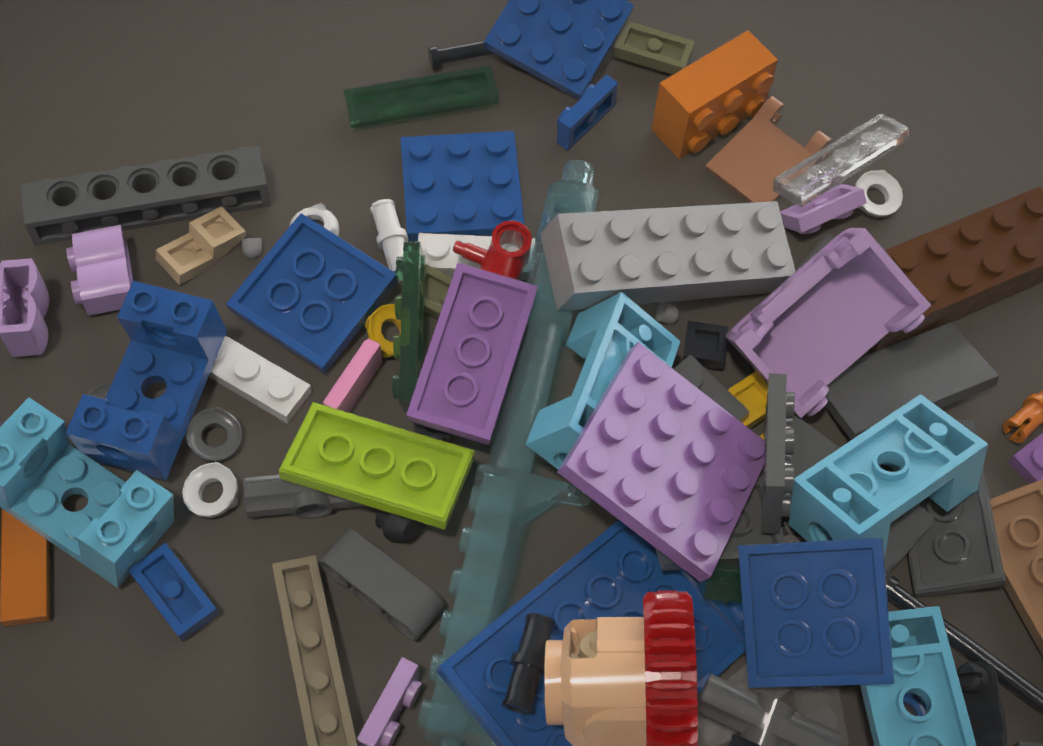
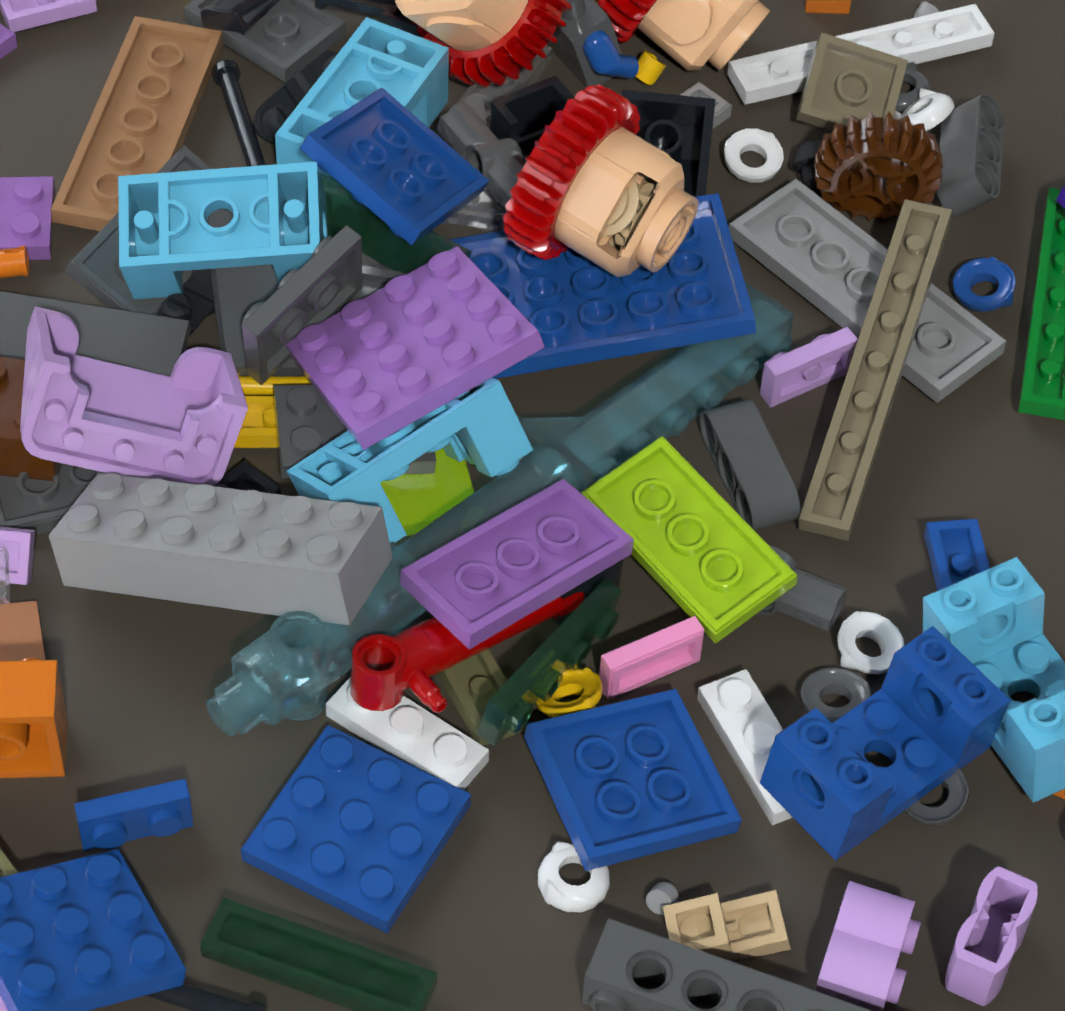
camera: 145 degrees left, 10 degrees down
(390, 234) = (492, 798): white pin -> none
(528, 663) = (672, 277): black pin -> none

